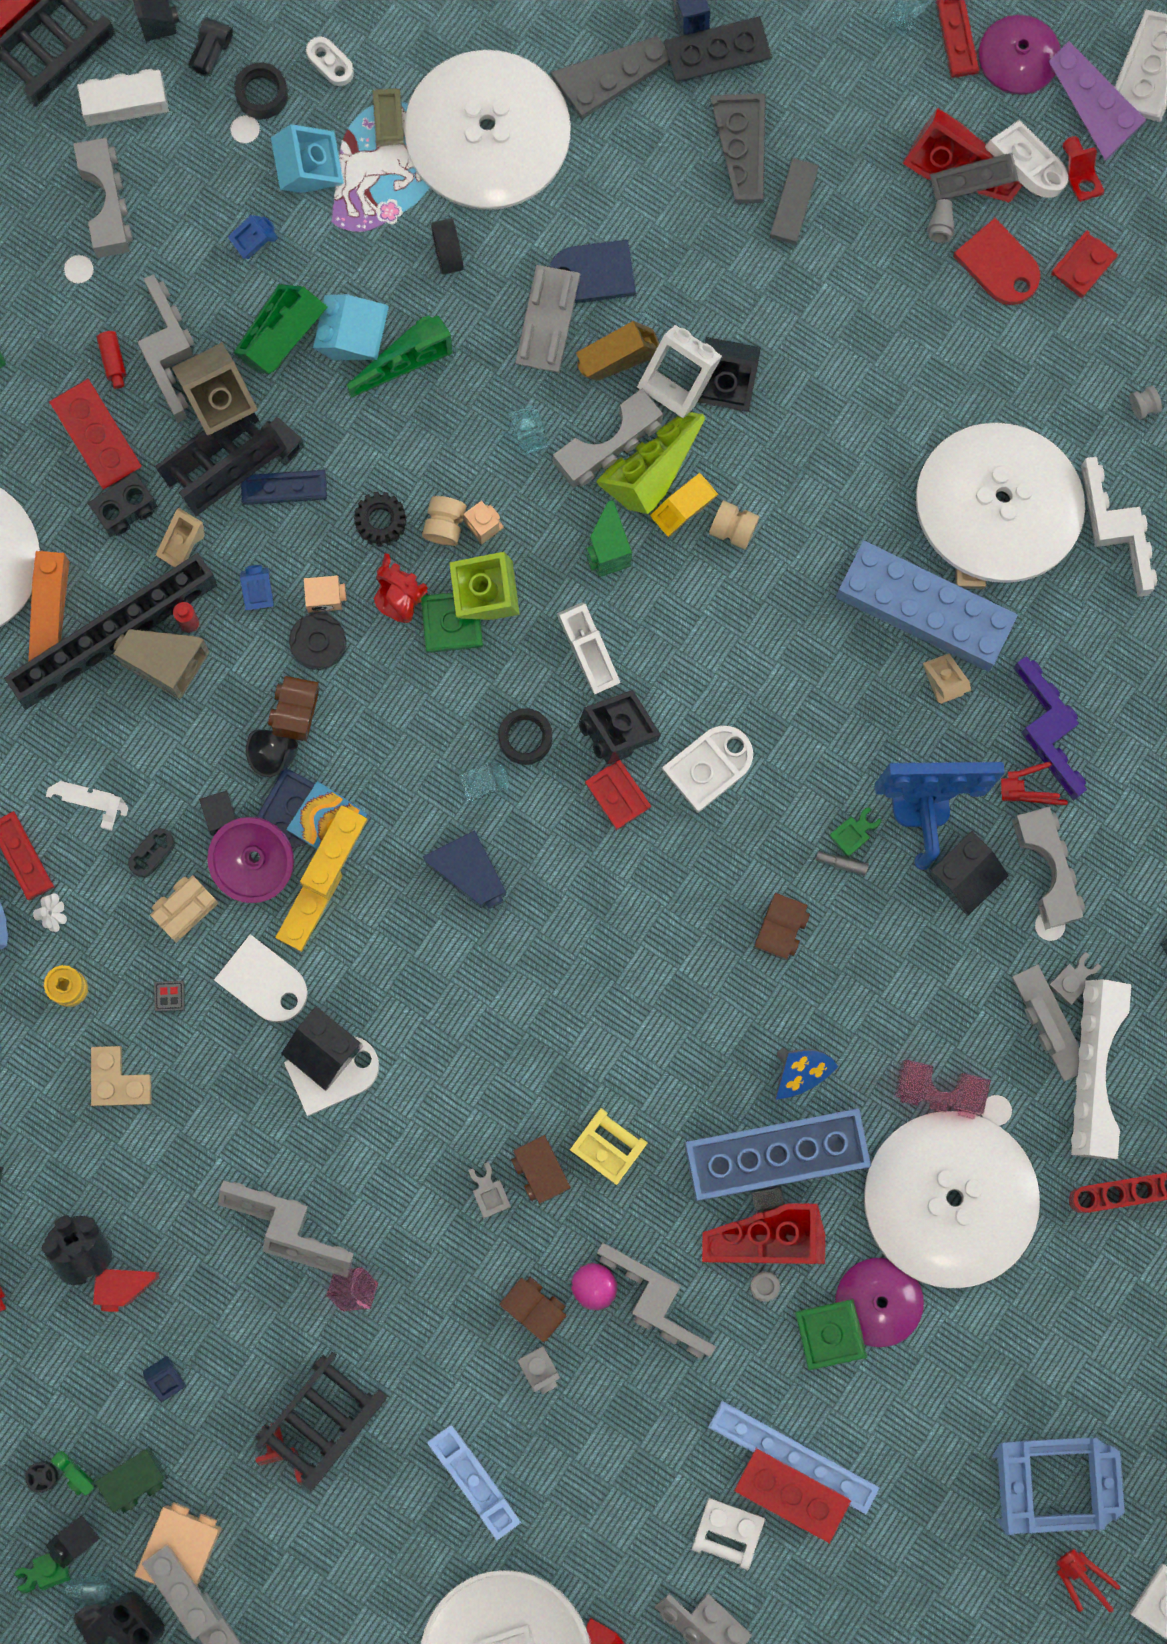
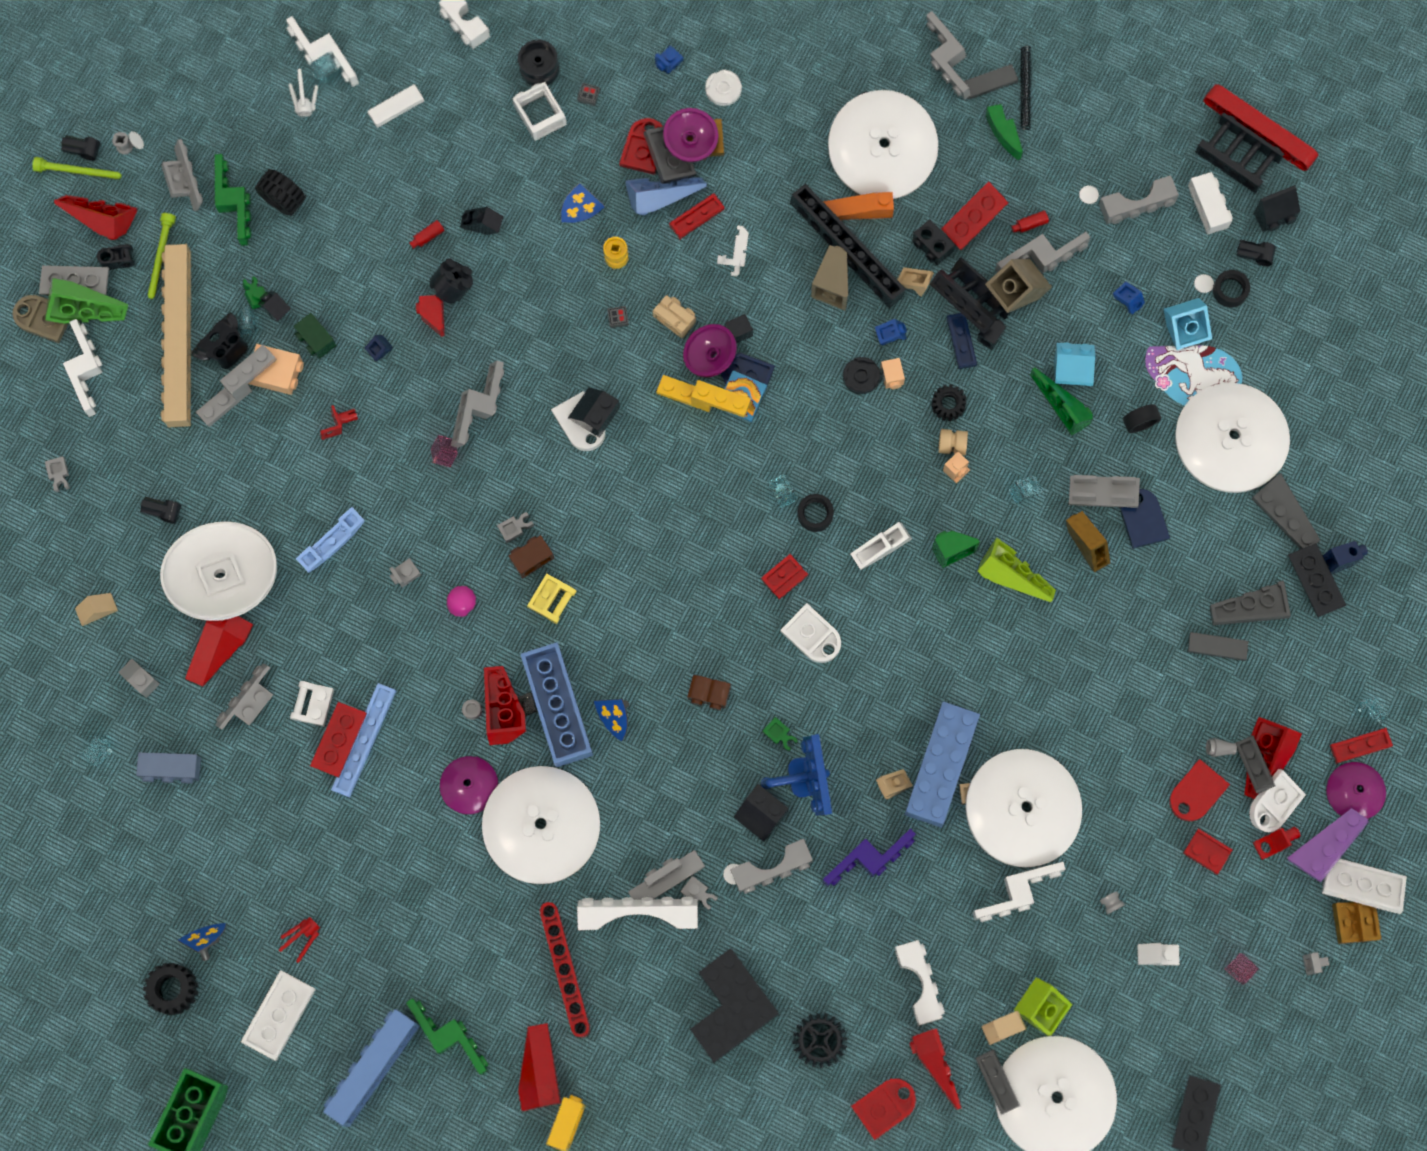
camera: 90 degrees right, 5 degrees down
(38, 1480) = (312, 279): black wheel -> none
(50, 912) = (662, 238): white plant -> none
(79, 1480) = (314, 303): green plate -> none
(109, 1084) = (559, 288): tan plate -> none
(156, 857) = (711, 289): black beam -> none
(186, 617) = (863, 290): red cylinder -> none
(262, 980) = (635, 371): white tile -> none
(269, 753) = (783, 354): black helmet -> none
(279, 327) = (1066, 319): green wedge -> none
(294, 709) = (813, 366): reddish brown brick -> none
(332, 61) = (1259, 329): white plate -> none
(348, 1425) = (357, 459): black fence -> none
(388, 117) = (1228, 372): olive tile -> none
(397, 591) = (900, 418): red hair -> none
(442, 627) = (887, 457): green tile -> none
(468, 870) = (721, 488): dark blue slope -> none
(484, 587) = (911, 473): lime slope -> none
(533, 1308) = (442, 563): reddish brown brick -> none
(581, 460) = (1043, 558): light grey arch -> none
(618, 726) = (829, 570): black plate -> none
(655, 1301) = (455, 639): light grey bracket -> none
(667, 391) = (1067, 573): white window -> none
(683, 504) = (989, 595): yellow slope -> none
(733, 377) = (1085, 613): black slope -> none
(734, 525) = (979, 629): tan wheel -> none
(831, 1334) = (444, 754): green tile -> none
(843, 863) = (757, 735): flat silver pin -> none
(916, 1085) = (613, 792): clear pink arch -> none
(997, 1110) = (604, 850): white sticker -> none
(1014, 789) = (823, 838): red plant -> none
(1017, 1486) = (356, 883): medium blue wedge -> none

